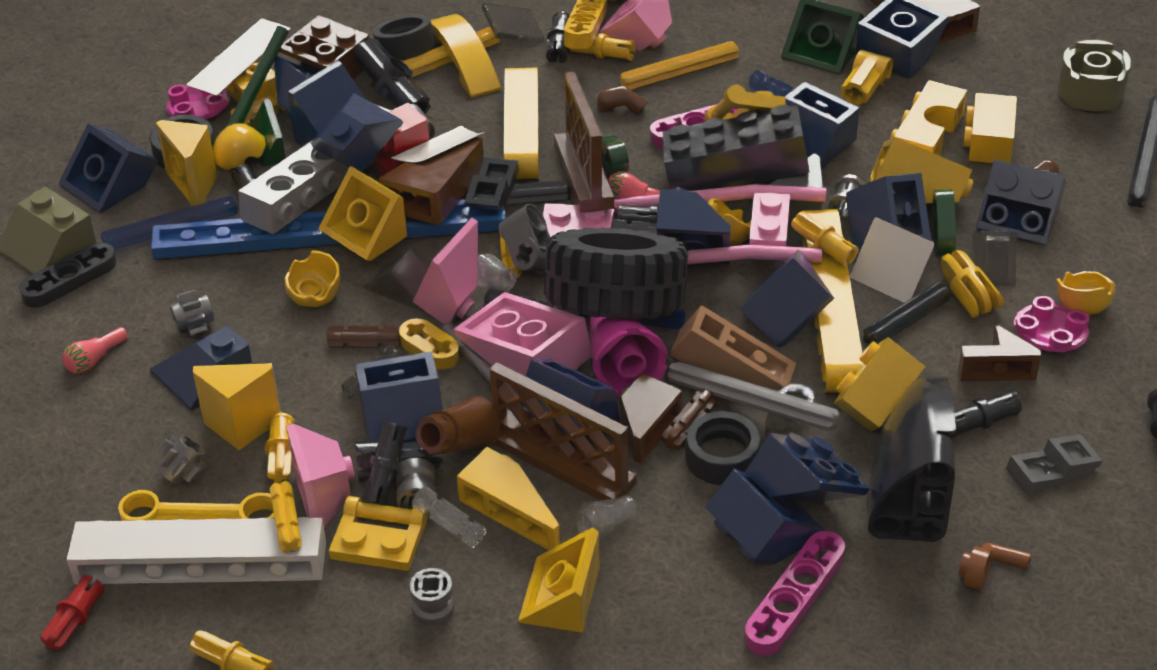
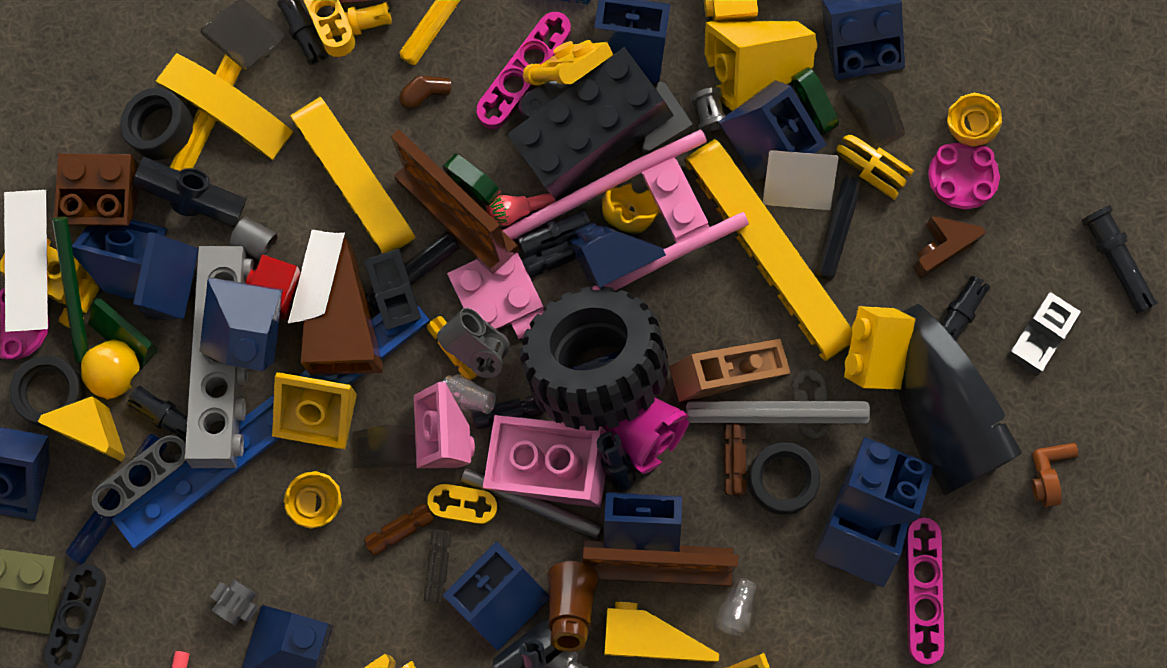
camera: 35 degrees left, 35 degrees up
(193, 200) = (127, 490): none -> dark grey beam
(579, 352) = (616, 461): none -> black pin
(647, 411) = (701, 480): slope -> none
(787, 300) = (739, 282): dark blue slope -> none
(825, 238) = (738, 199): yellow axle -> none

